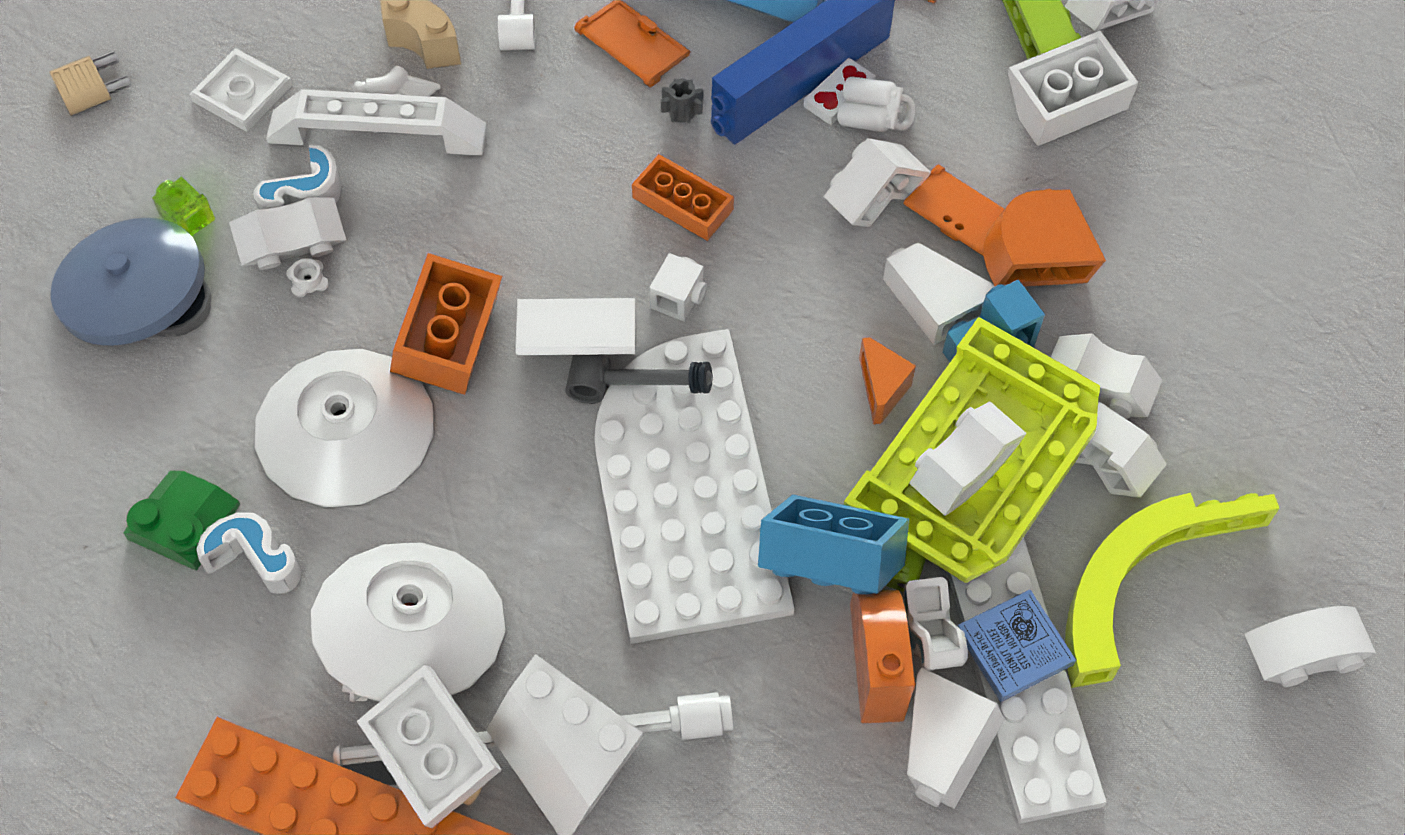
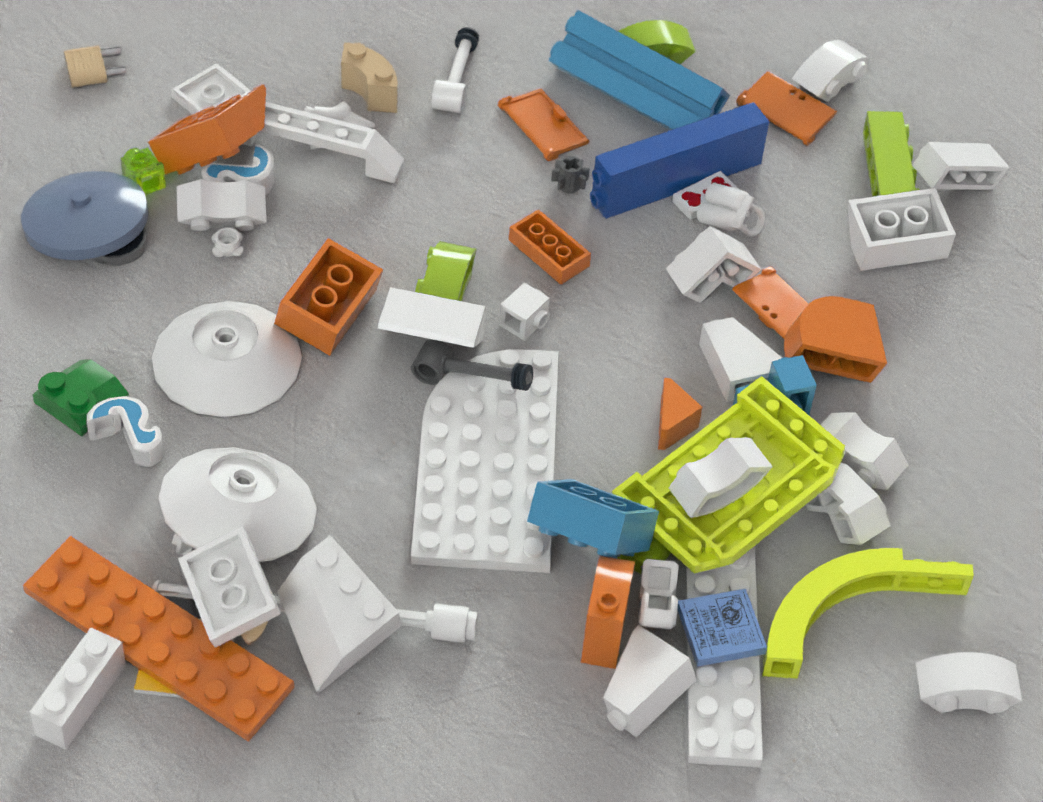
camera: 10 degrees right, 10 degrees down
(252, 143) = (211, 132): none -> orange wedge
(576, 260) = (447, 271): none -> lime brick

